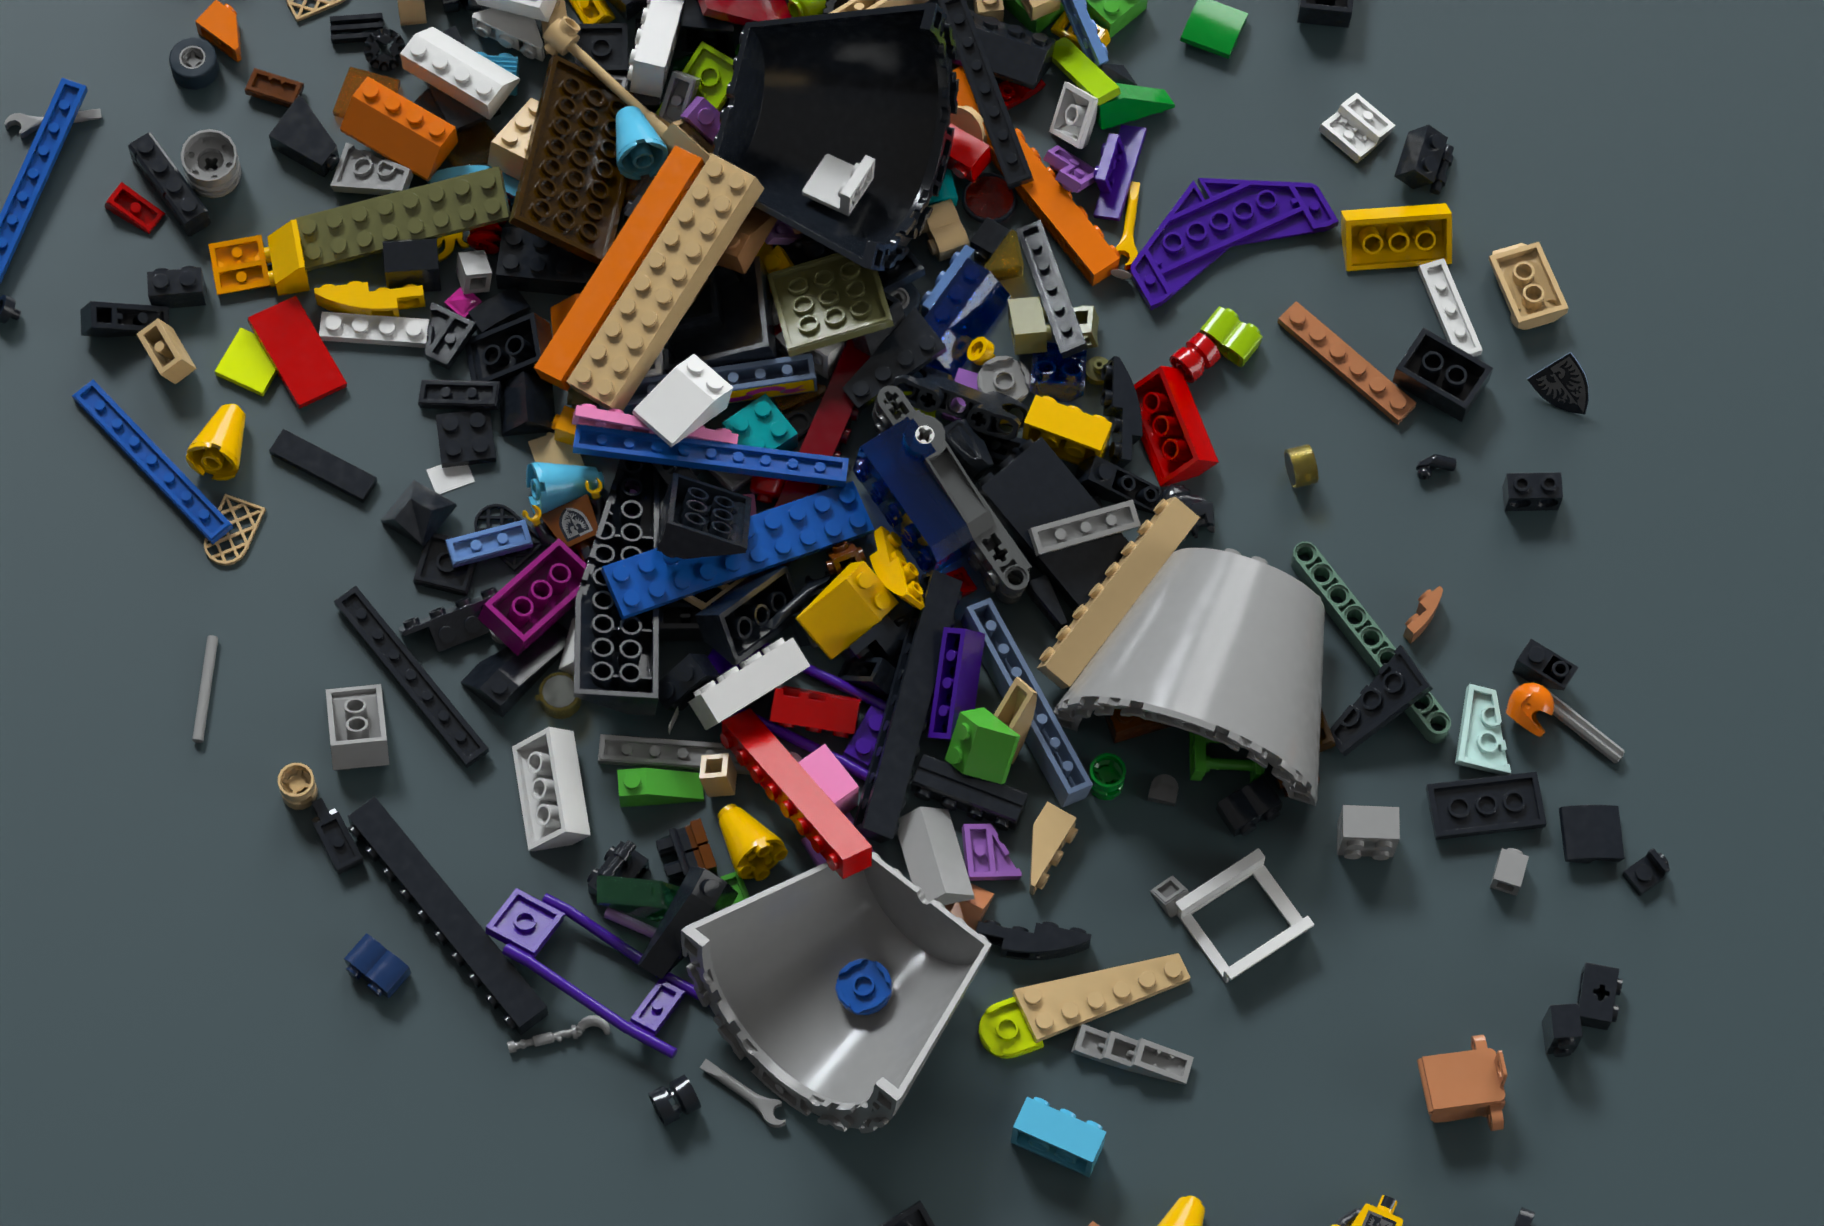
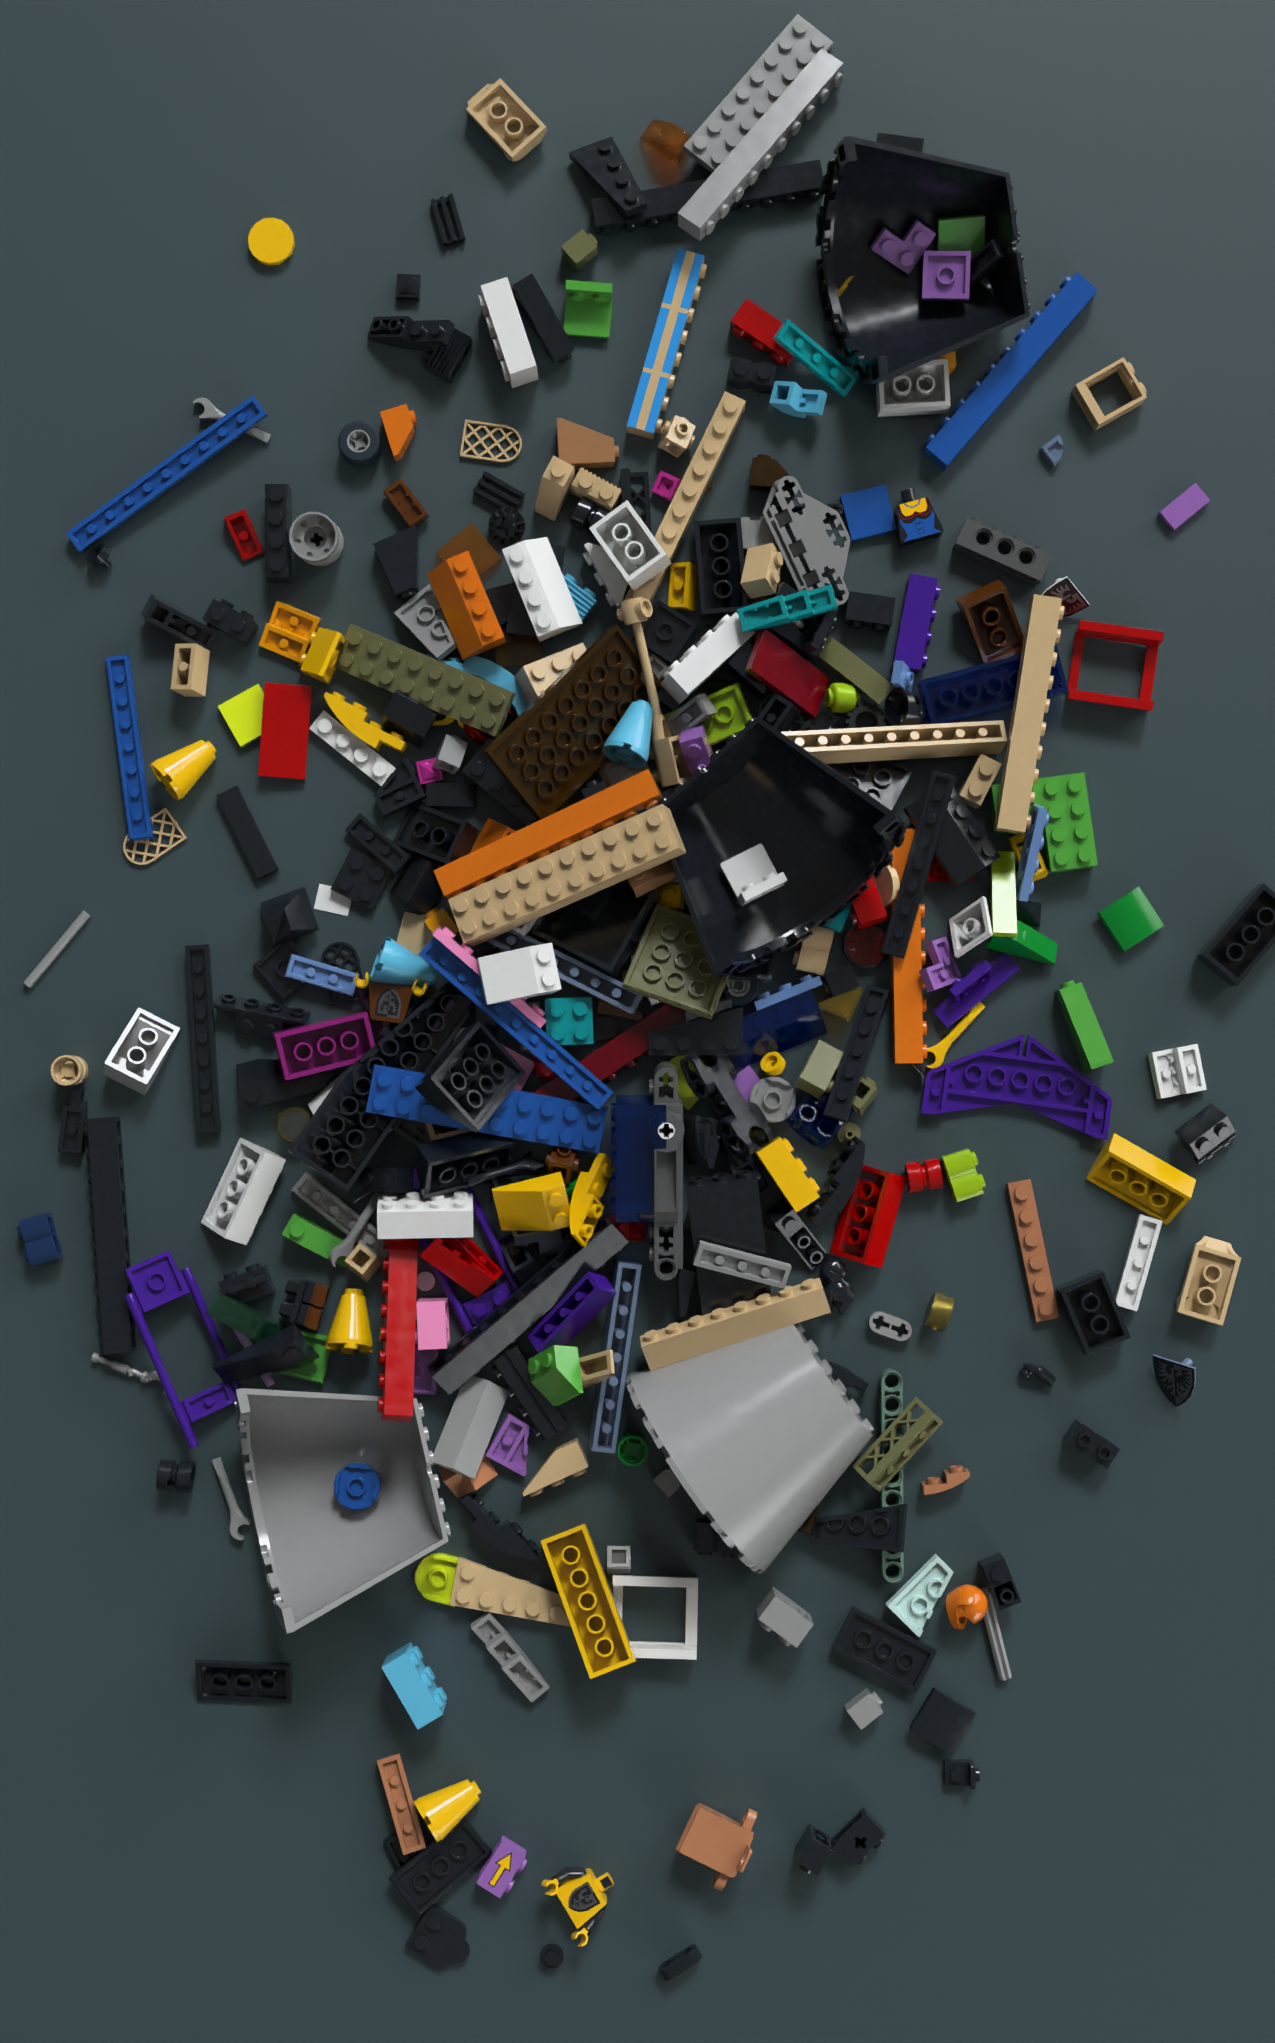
camera: 40 degrees right, 20 degrees up
(690, 772) = (347, 1245): none -> light grey piece
(1169, 937) = (588, 1601): none -> yellow brick
(1243, 139) = (1083, 1026): none -> bright green slope
(1265, 507) = (887, 1331): none -> light grey beam
(1359, 597) = (916, 1435): none -> olive fence

